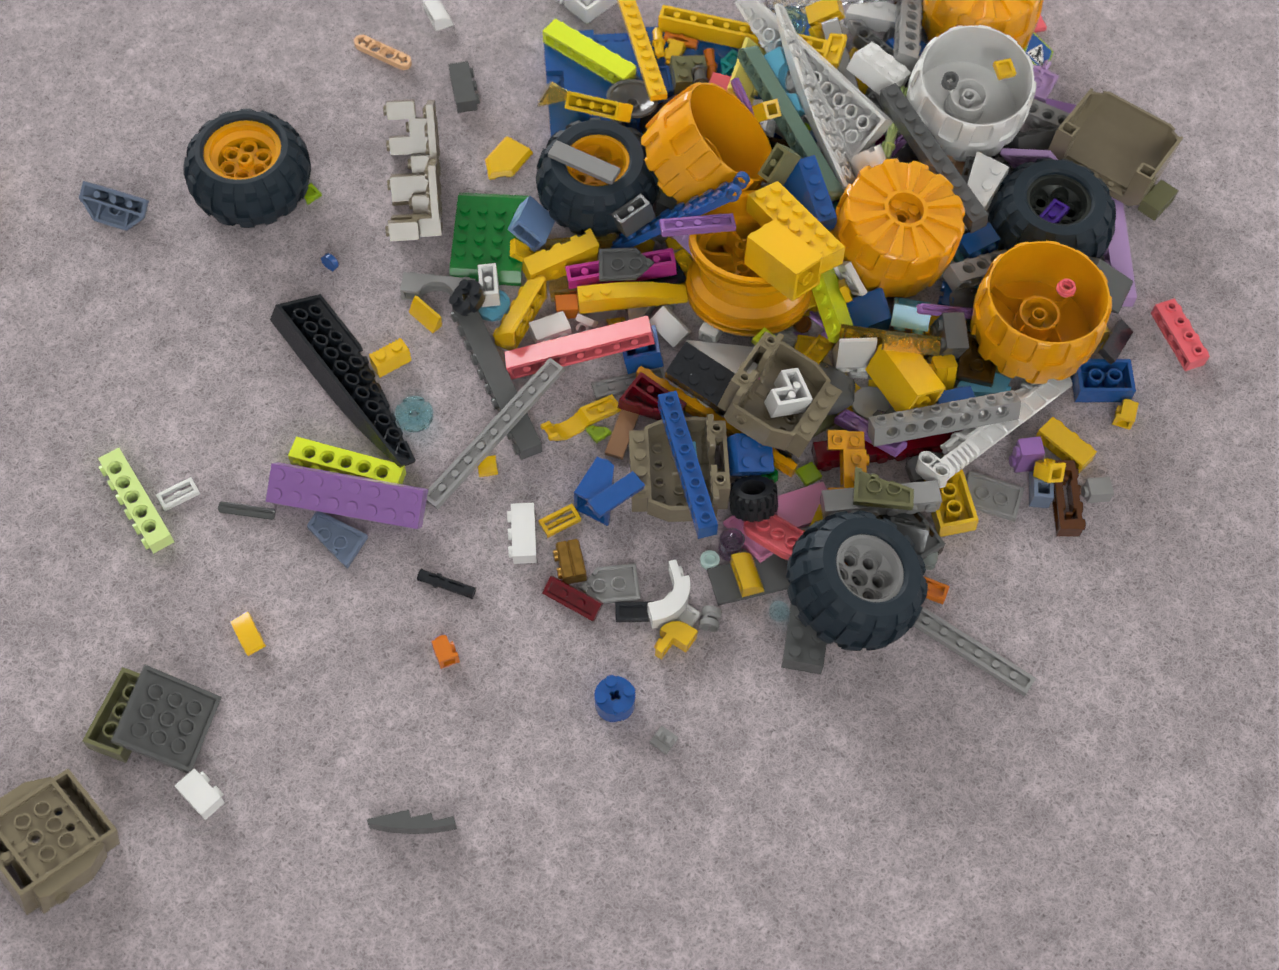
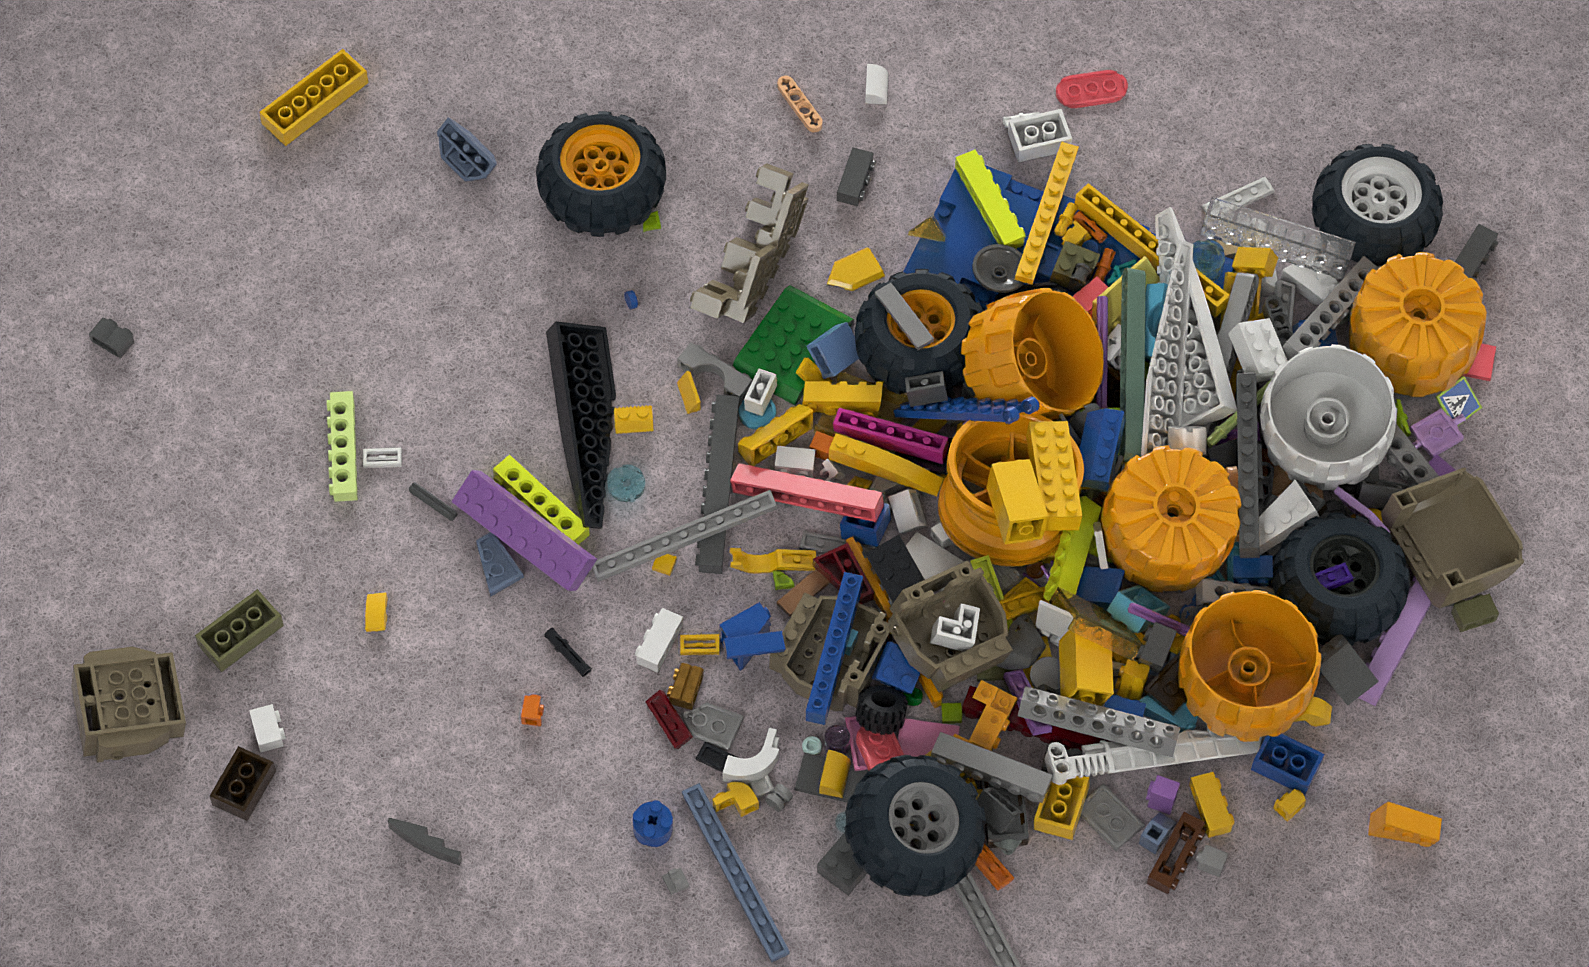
camera: 30 degrees right, 0 degrees up
(166, 719) = (271, 651): dark grey plate -> none
(204, 859) = (242, 783): none -> dark brown brick
(463, 290) = (734, 387): black plate -> none
(598, 106) = (958, 263): yellow brick -> none
(622, 264) = (890, 431): dark grey tile -> none
(697, 225) = (968, 428): medium lavender tile -> none
(713, 705) = (735, 873): none -> sand blue plate
(767, 110) = (1114, 343): yellow brick -> none
(779, 164) = (1083, 405): olive brick -> none
(835, 48) = (1228, 309): yellow hinge -> none
(845, 290) = (1090, 556): yellow tile -> none
(877, 492) = (988, 758): olive wing -> none
(947, 76) = (1294, 403): dark grey bush -> none
(1004, 69) = (1360, 410): yellow tile -> none
(1049, 470) = (1170, 815): yellow brick -> none
(1067, 284) = (1269, 649): coral plate -> none
(1115, 342) = (1323, 730): black tile -> none
(1180, 334) = (1399, 755): coral brick -> none
(1222, 386) = (1404, 824): none -> light orange wedge

